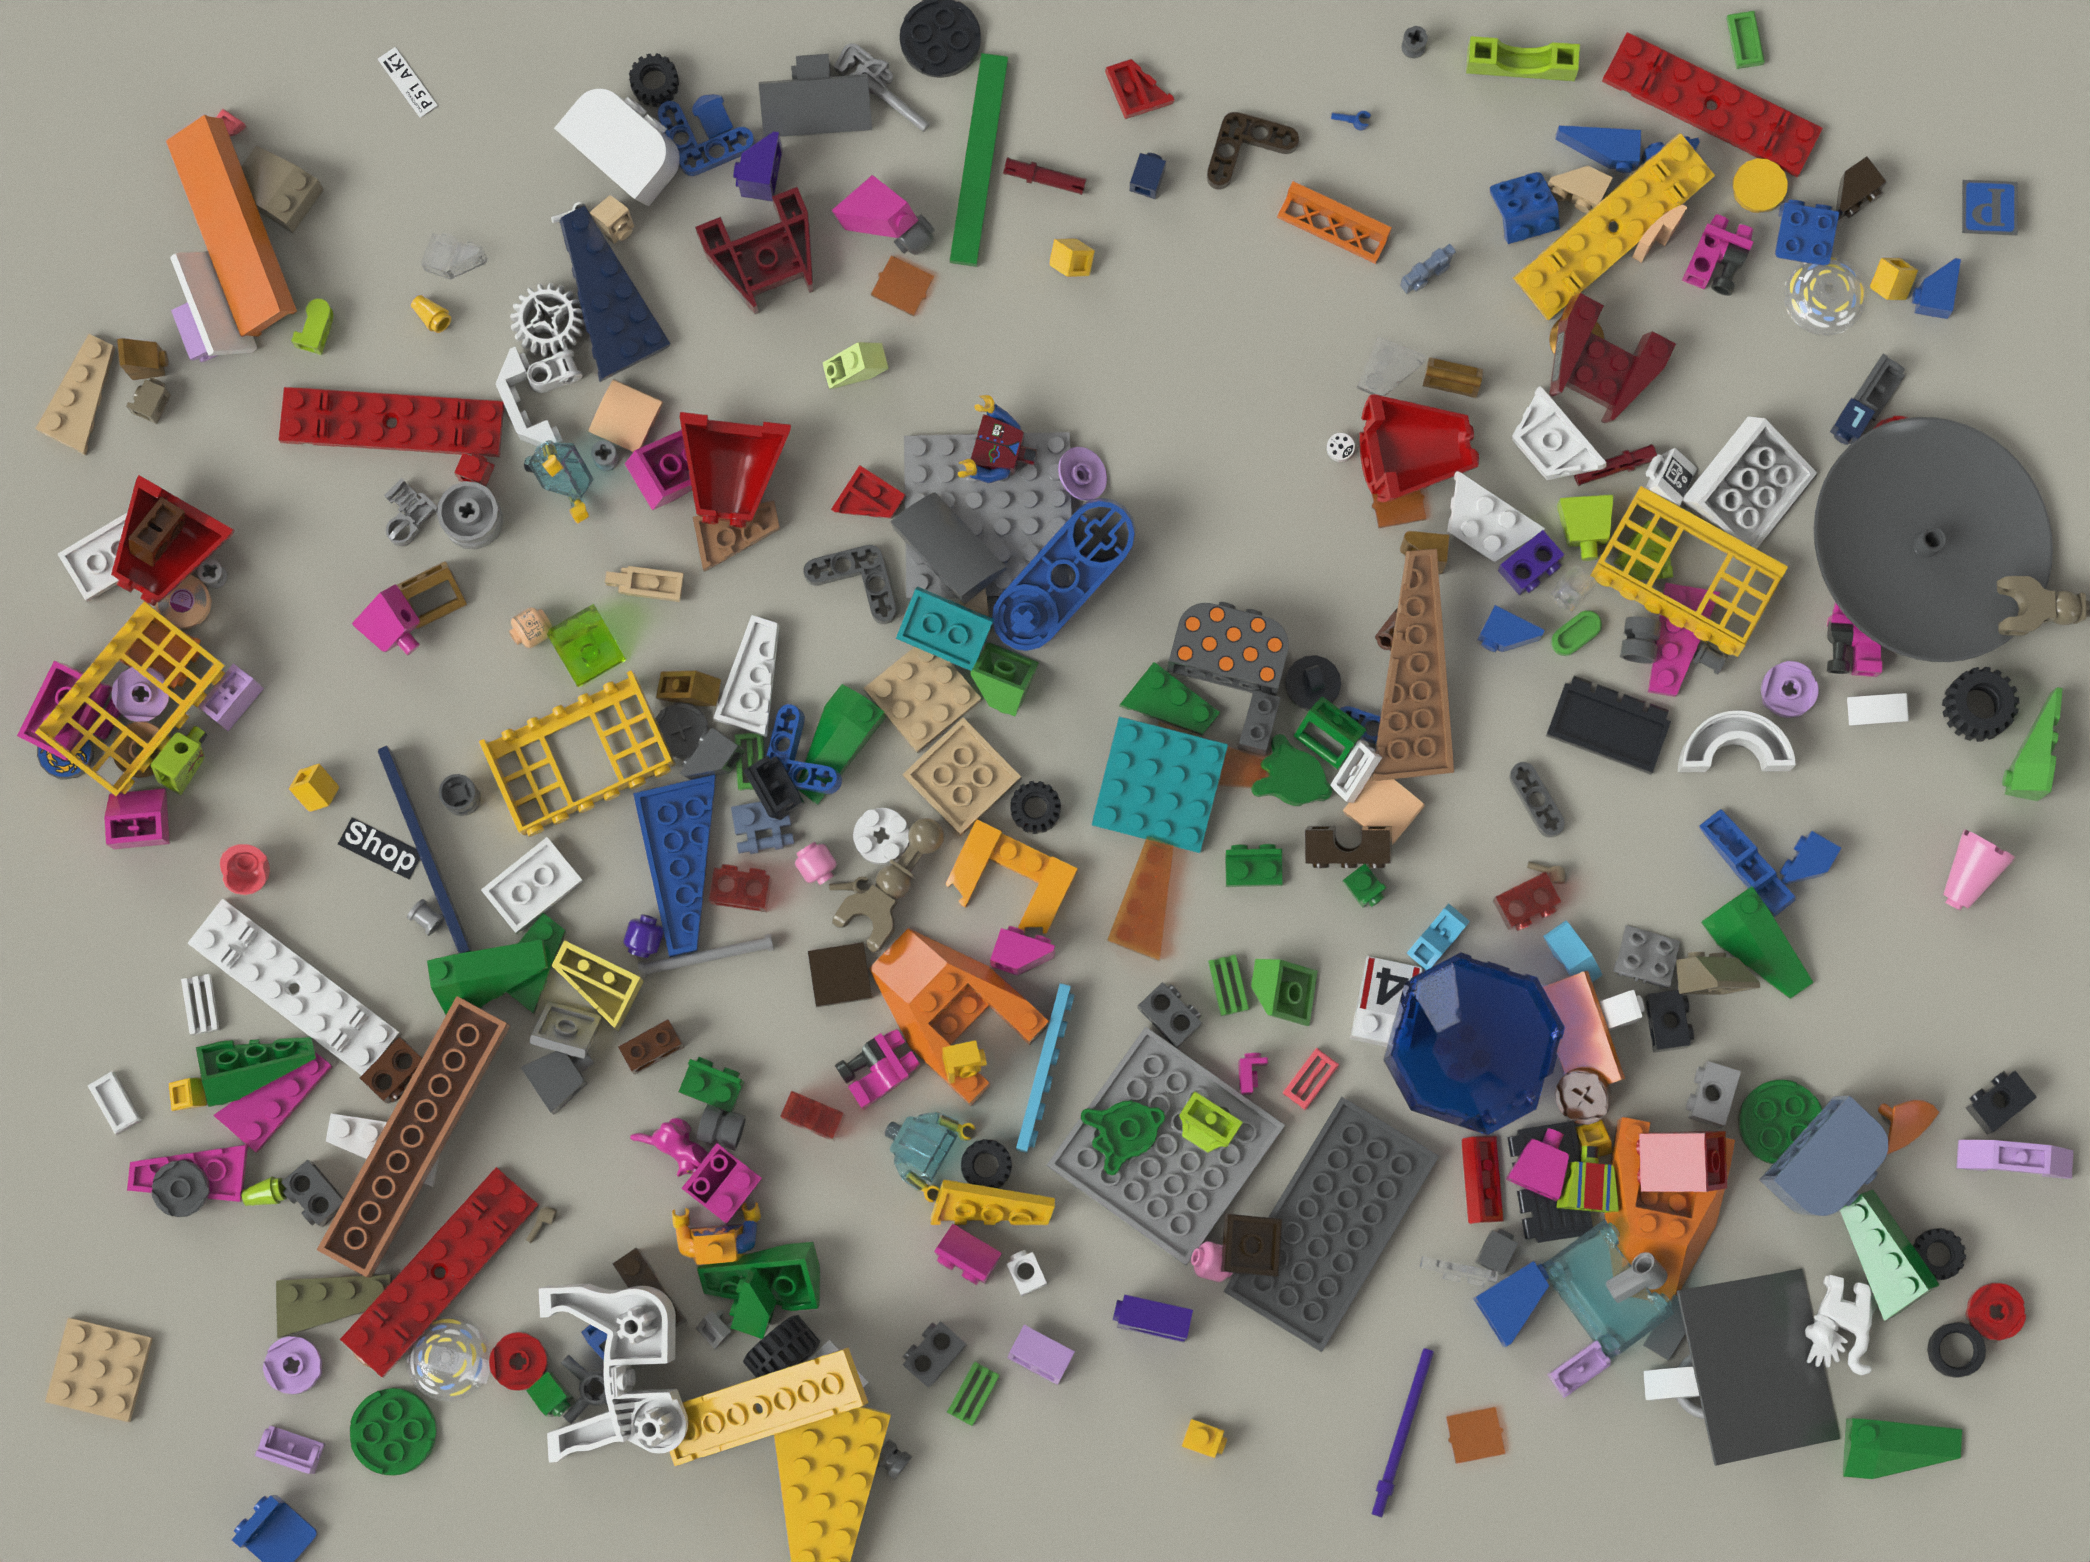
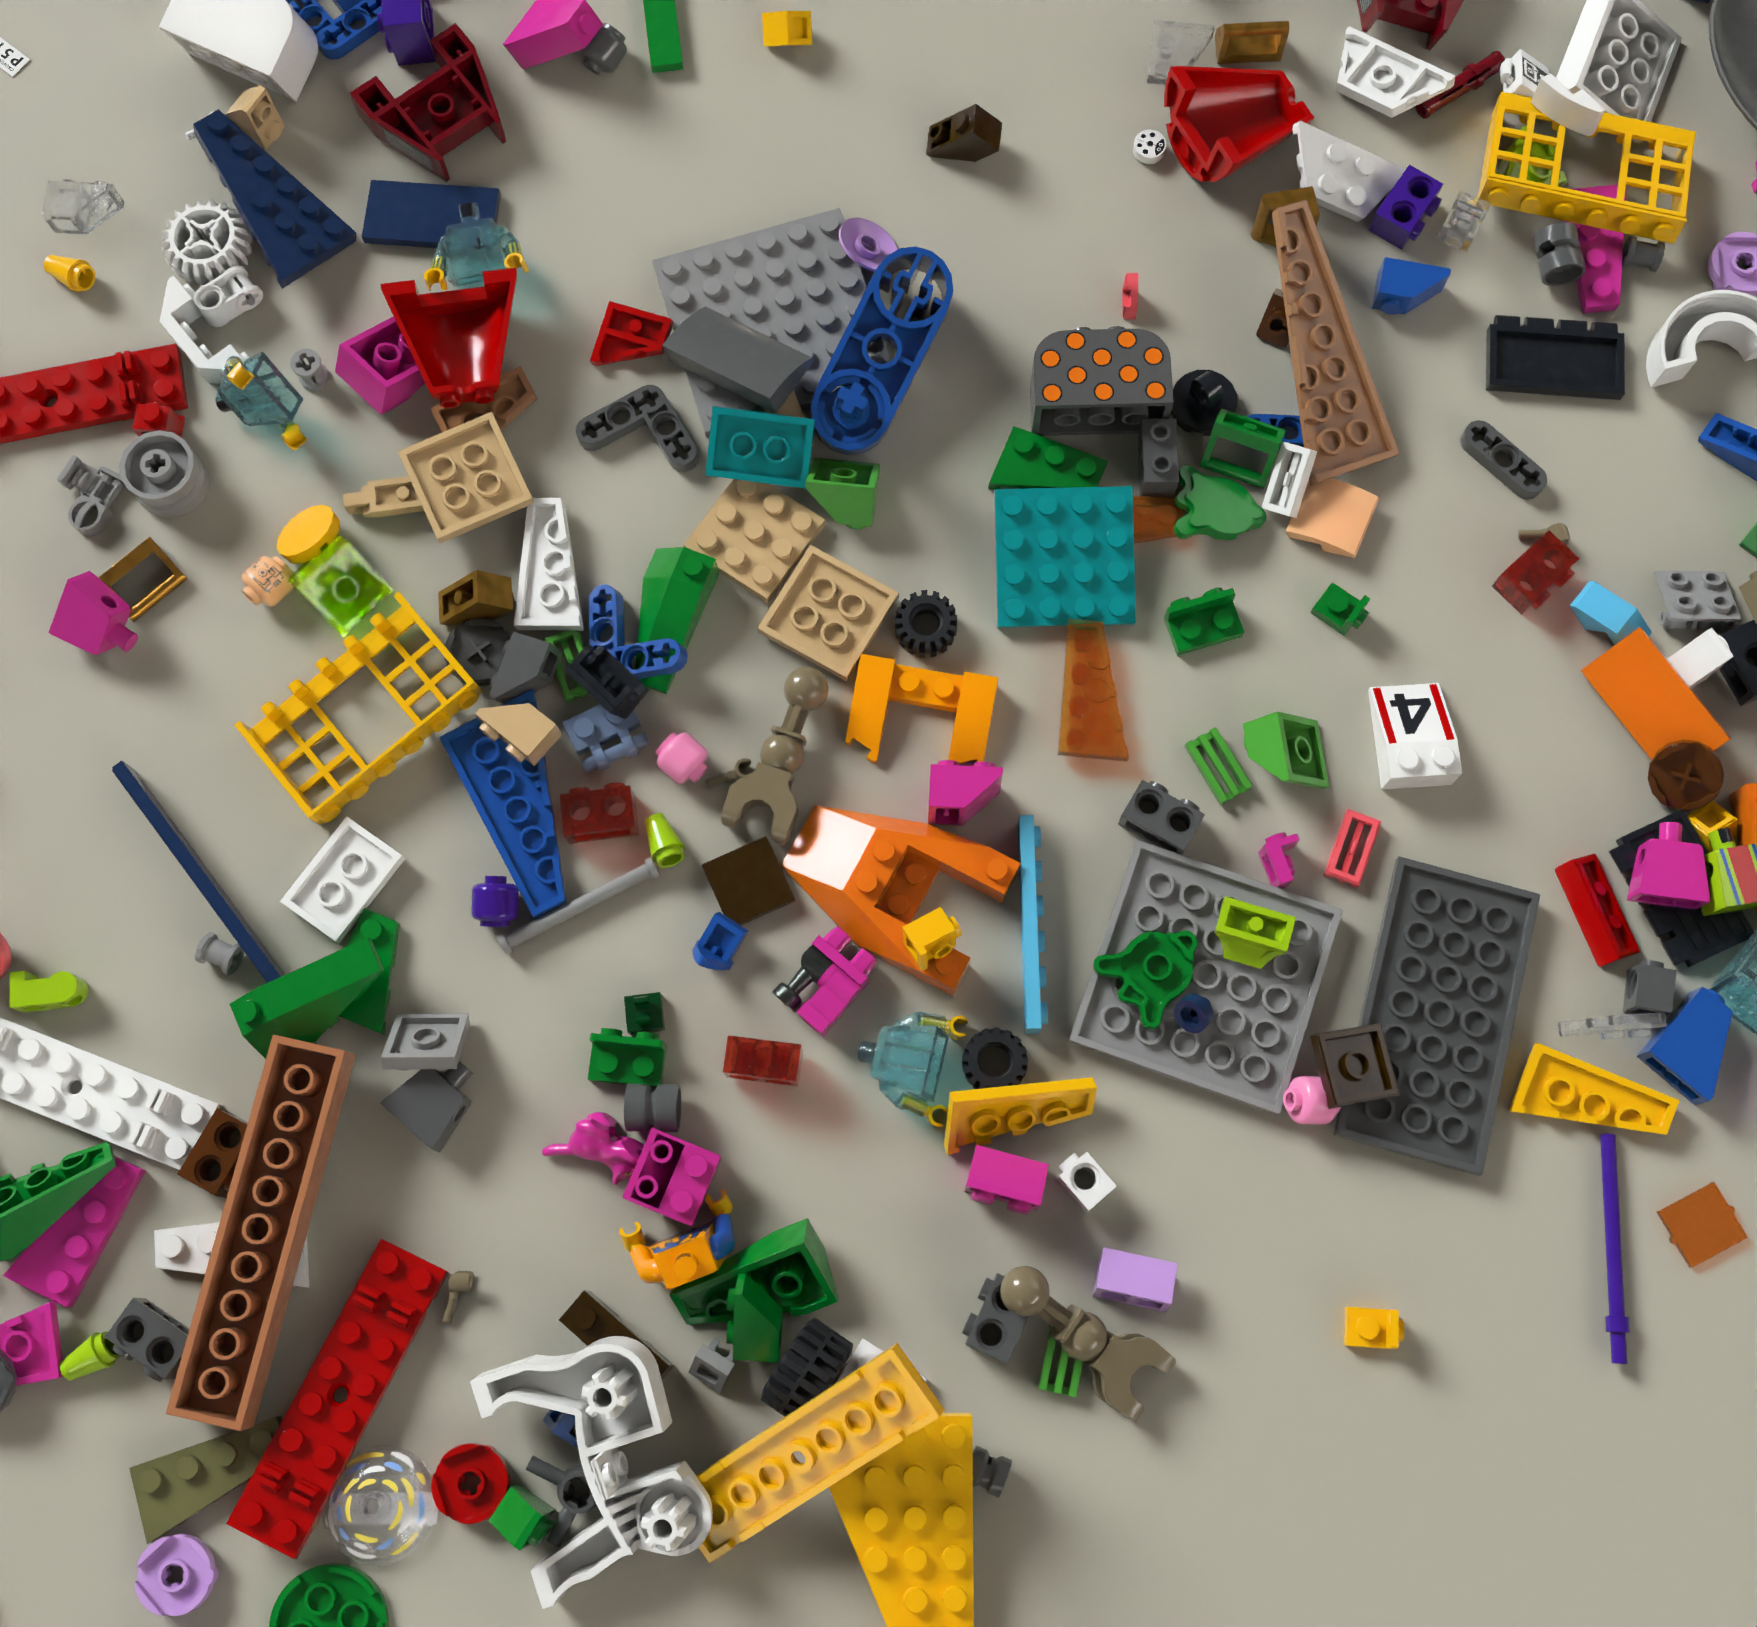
camera: 15 degrees left, 5 degrees down
(295, 912) = (42, 994): none -> lime leg
(314, 787) = (46, 837): yellow panel -> none
(379, 848) = (146, 888): black sticker -> none
(459, 795) = (226, 795): dark grey wheel -> none
(571, 597) = (307, 533): none -> yellow tile
(601, 983) = (454, 970): light yellow wedge -> none
(625, 416) = (323, 320): light nougat slope -> none
(651, 1047) = (538, 1033): reddish brown brick -> none
(698, 806) = (521, 728): none -> tan slope
(706, 586) = (465, 477): none -> tan plate
(734, 1053) = (644, 1013): none -> dark green tile
(735, 344) = (420, 211): none -> dark blue tile
(762, 392) = (471, 249): none -> clear light blue torso
(783, 924) = (663, 841): none -> lime cone
(804, 1016) = (719, 943): none -> blue tile
(855, 364) = (575, 198): yellowish green slope -> none
(872, 822) = (739, 692): white plate -> none
(902, 285) = (605, 109): clear orange piece -> none
(990, 1386) = (1086, 1339): none -> dark tan piece
(997, 446) = (762, 233): torso -> none
(1144, 1171) = (1193, 1013): none -> dark blue tile
(1153, 1318) = (1271, 1190): dark purple arch -> none
(1189, 398) = (965, 135): none -> dark brown slope
(1281, 577) = (1130, 296): none -> coral tile
(1324, 849) = (1340, 556): dark brown arch -> none
(1399, 511) = (1234, 193): clear orange piece -> none
(1417, 1312) = (1581, 1092): none -> yellow wing
(1438, 937) = (1446, 642): medium azure slope -> none
(1473, 1043) = (1545, 742): clear blue windscreen -> none
(1576, 633) = (1481, 271): bright green tile -> none
(1586, 522) = (1451, 149): lime torso -> none
(1689, 525) = (1573, 111): none -> white slope

